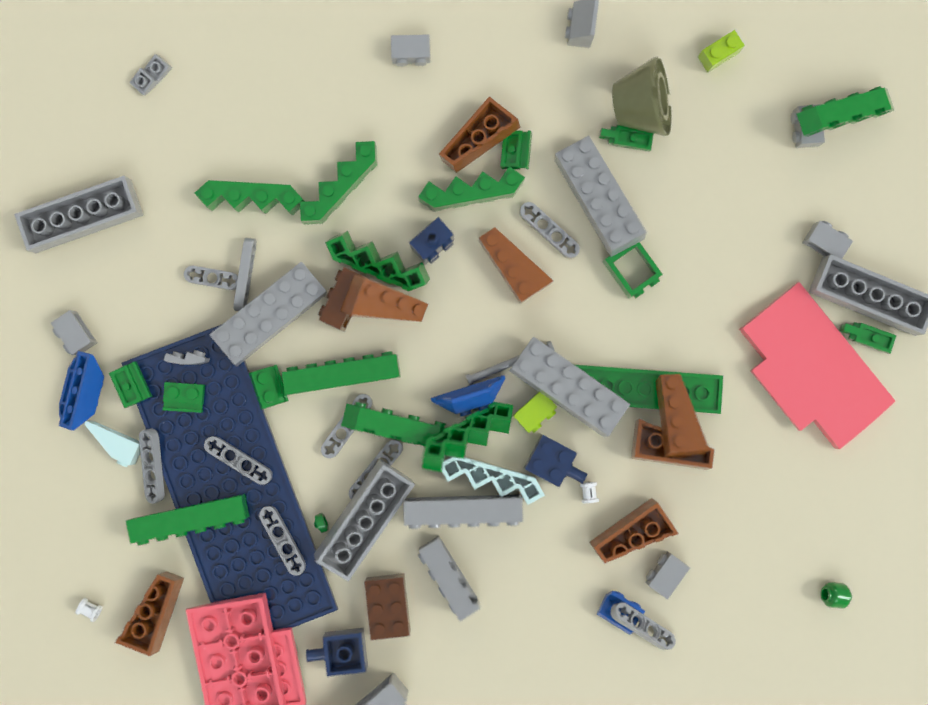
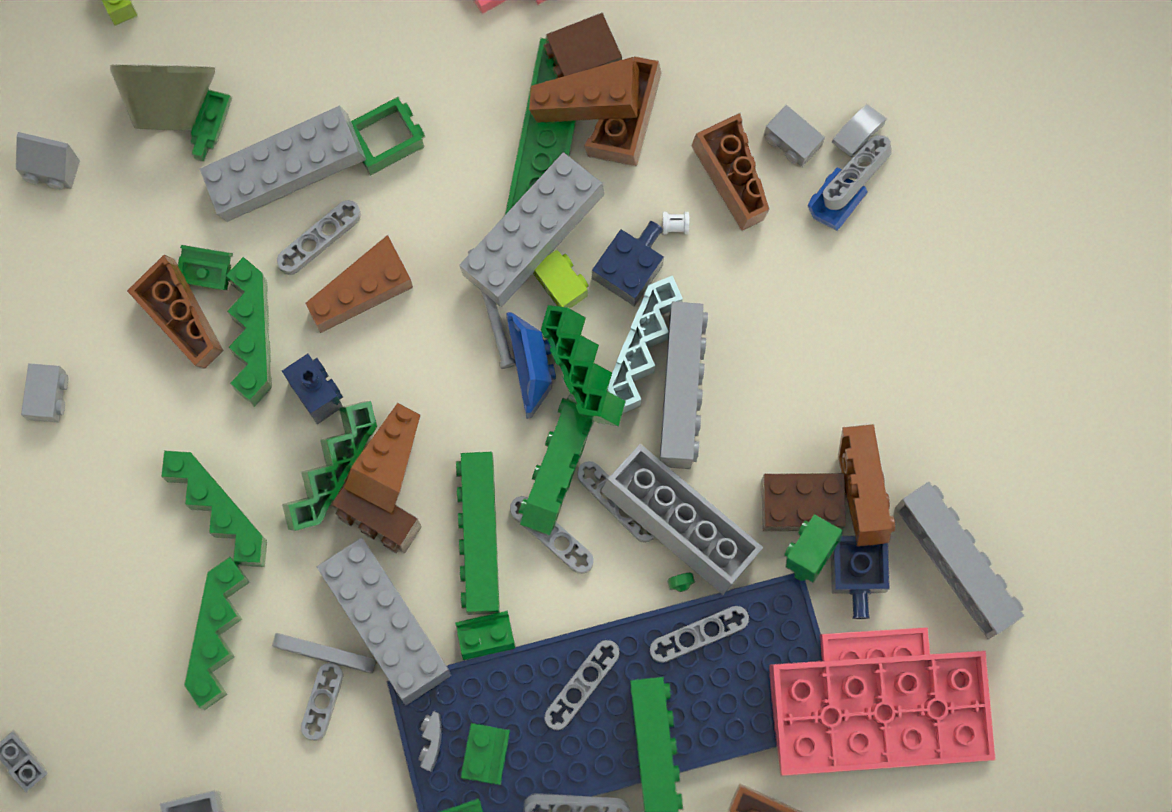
camera: 85 degrees left, 10 degrees down
(347, 620) = (812, 549): none -> green brick
(400, 653) = (865, 485): none -> dark orange wedge
(449, 578) = (772, 415): light grey wedge -> none
(677, 624) = (858, 130): none -> light grey slope
(716, 409) = (582, 46): none -> reddish brown brick

